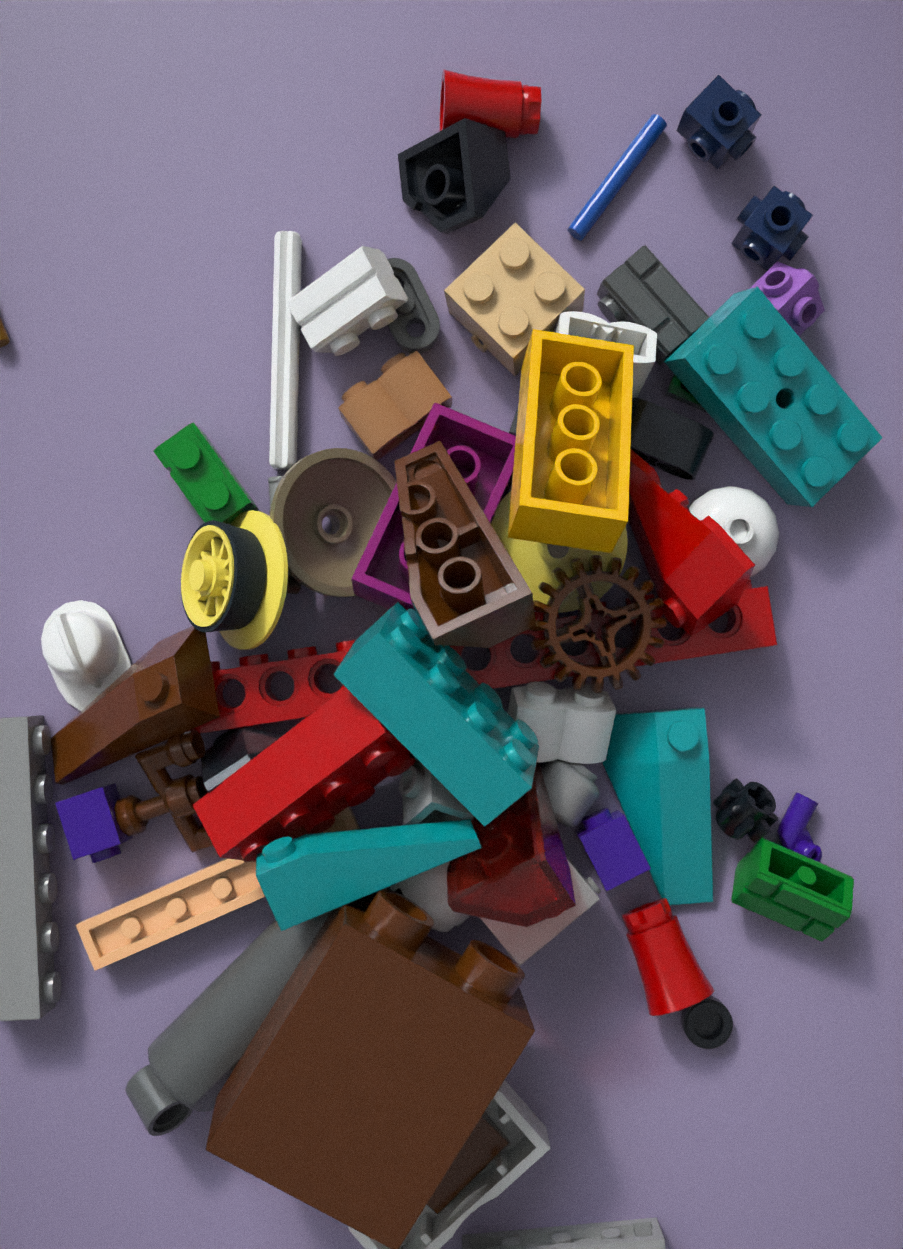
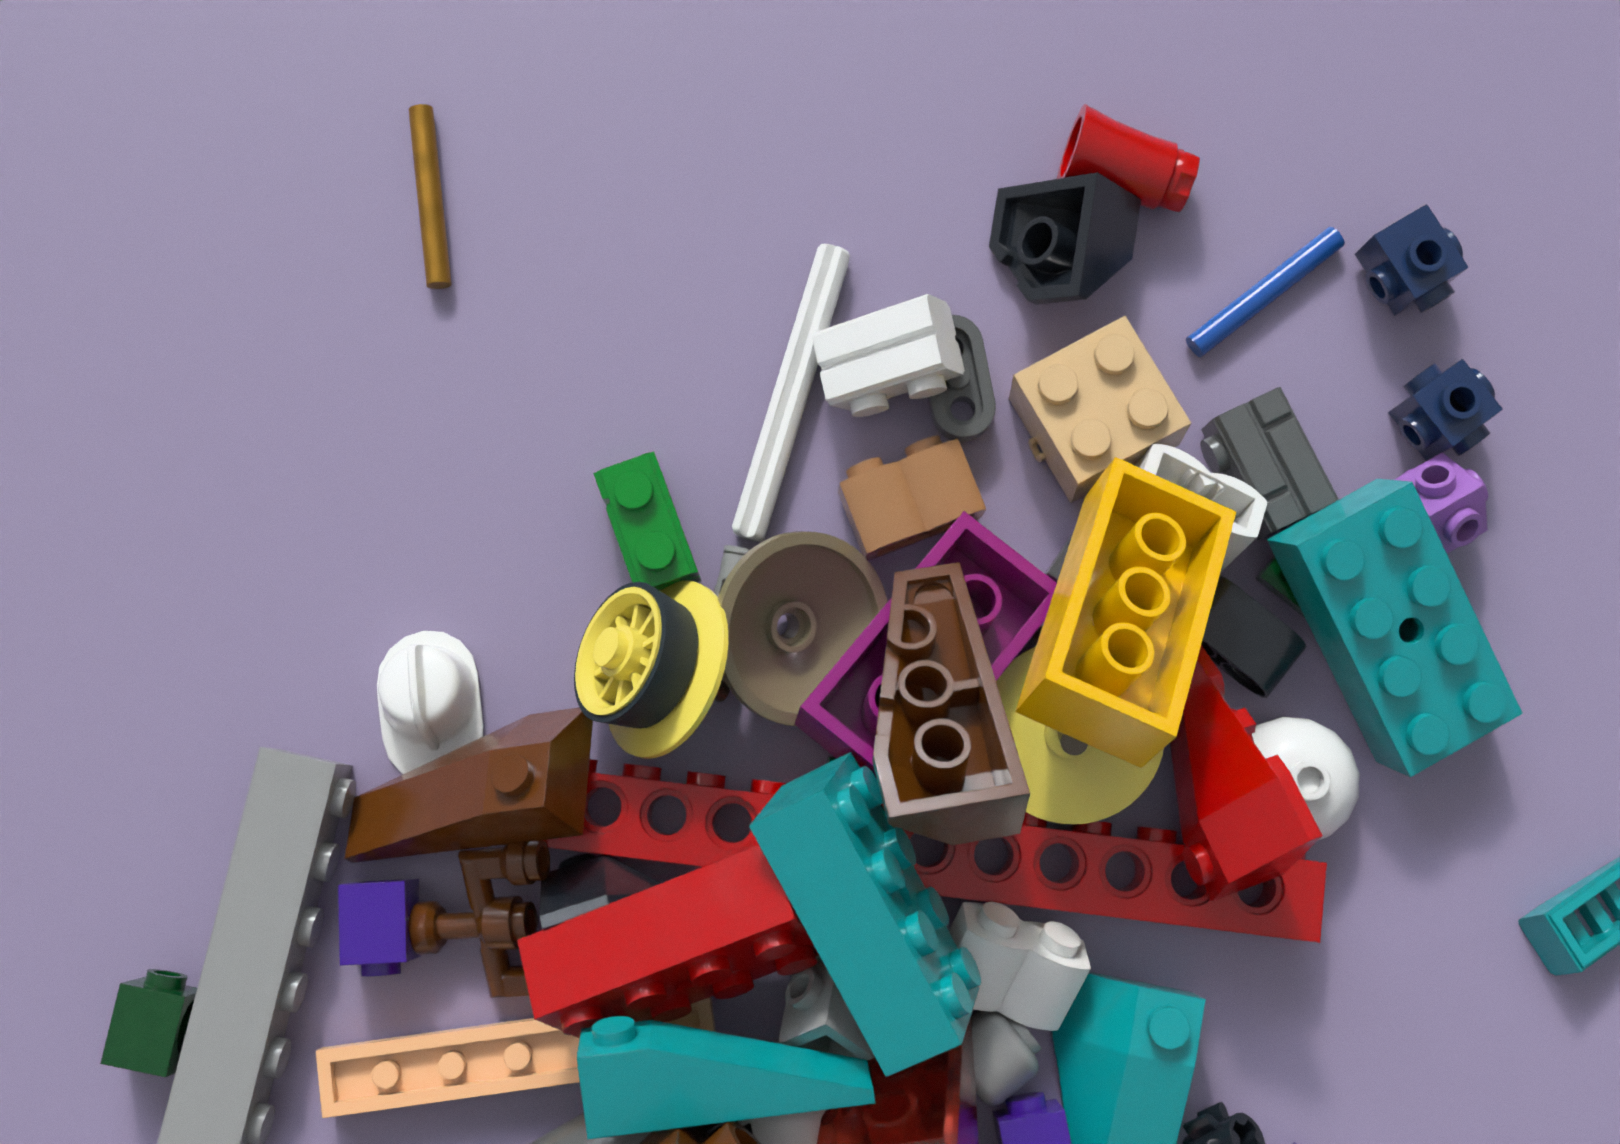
camera: 10 degrees right, 5 degrees down
(638, 609) = (1154, 848): reddish brown gear -> none

